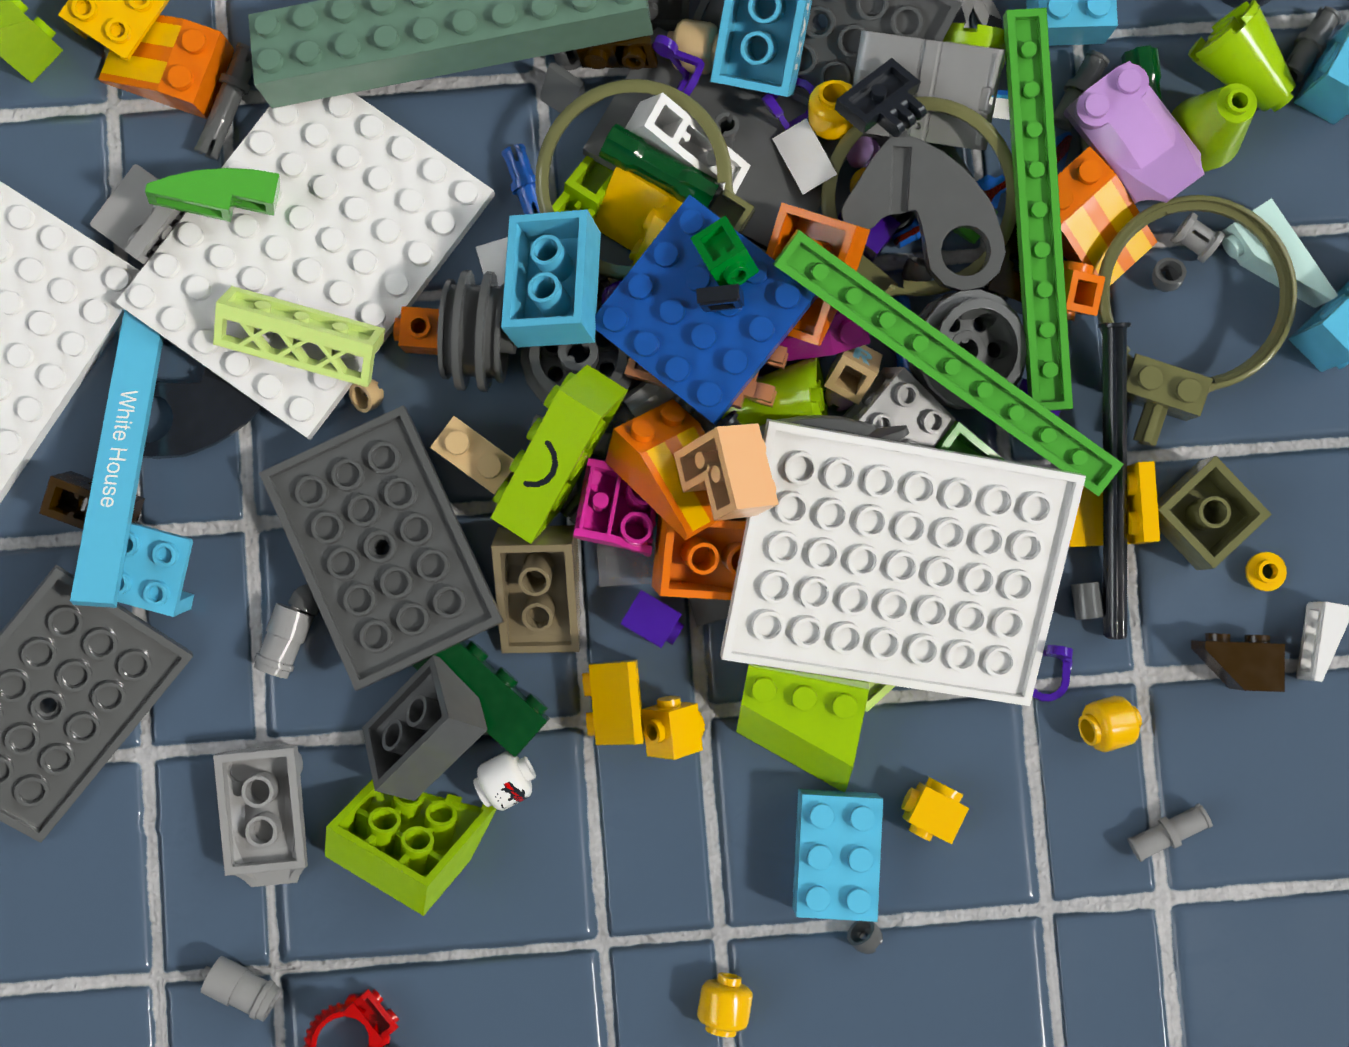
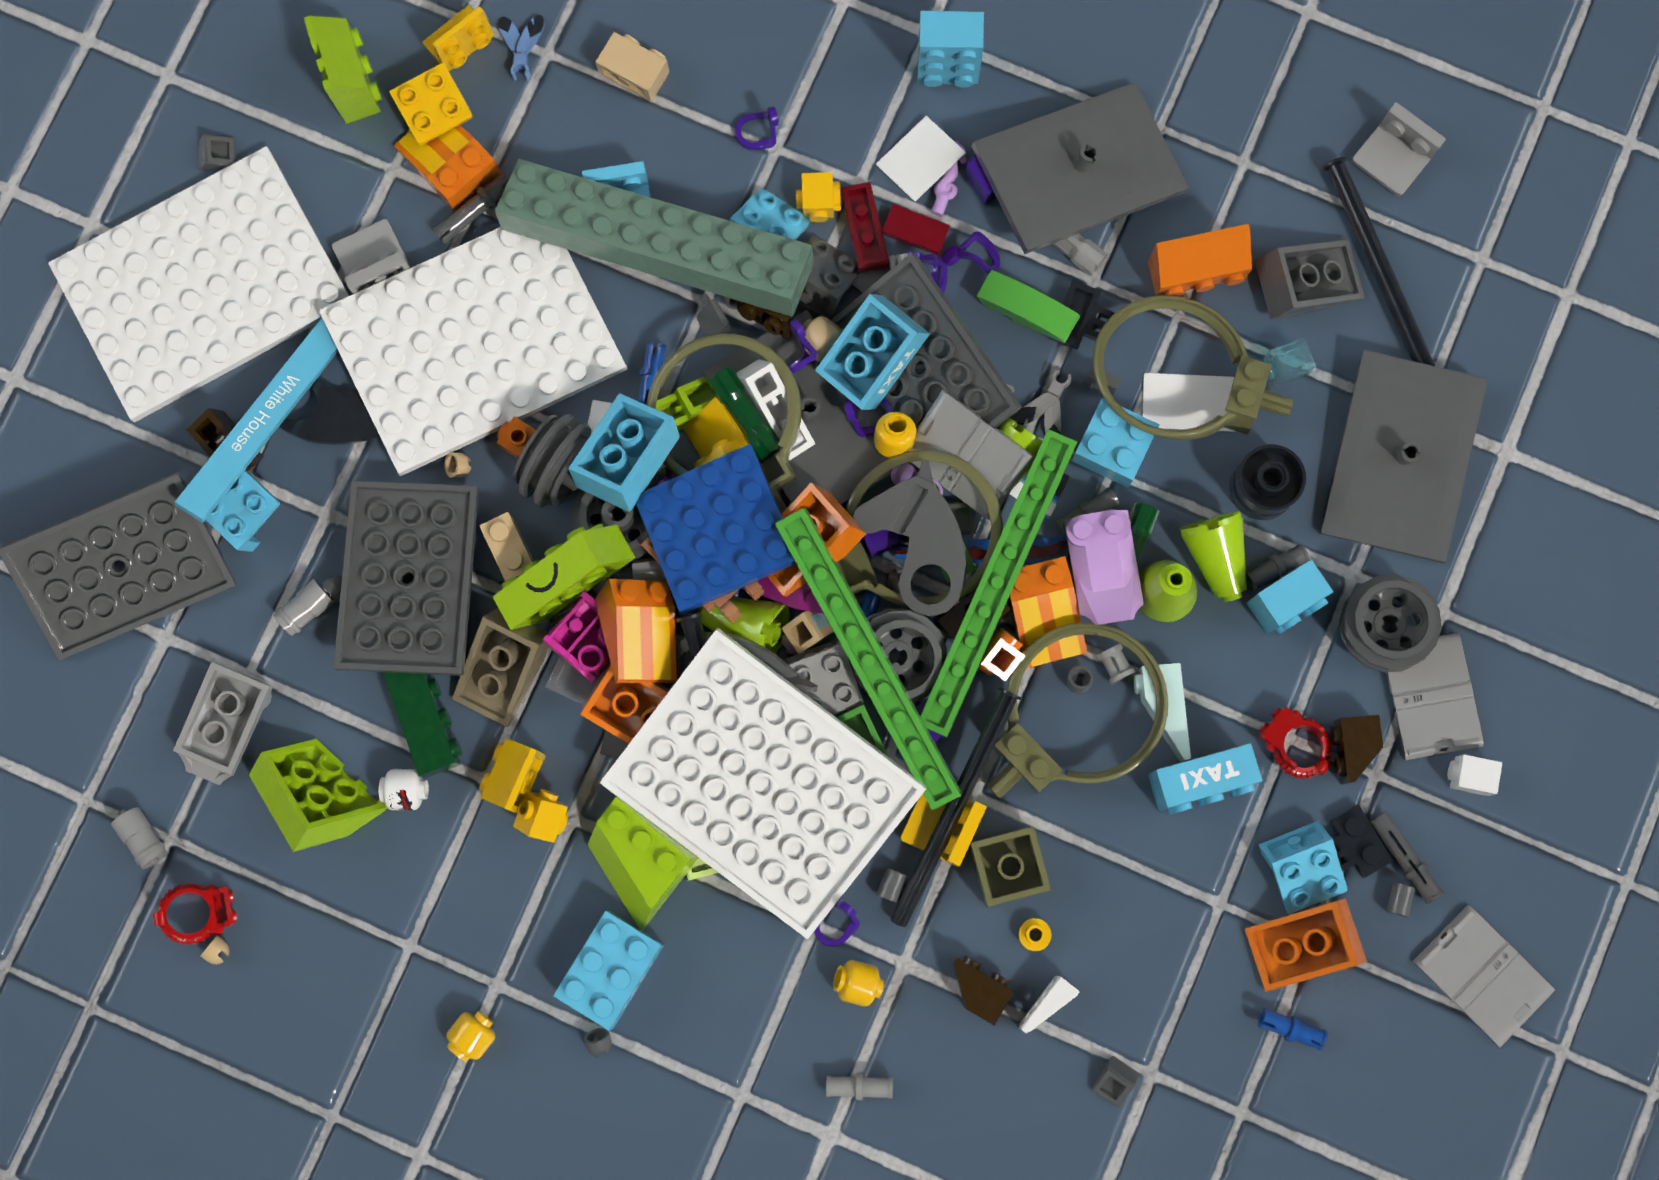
camera: 35 degrees right, 5 degrees down
(217, 192) = (430, 271): bright green slope -> none
(300, 323) = (434, 393): yellowish green fence -> none
(422, 730) = (364, 722): dark grey slope -> none
(653, 620) = (570, 731): dark purple brick -> none
(720, 297) = (727, 526): black tile -> none
(724, 253) = (746, 498): green bracket -> none
(731, 468) = (669, 650): light nougat brick -> none
(804, 156) = (857, 457): white sticker -> none
(883, 99) = (926, 446): black hinge -> none
(934, 810) = (696, 976): yellow brick -> none

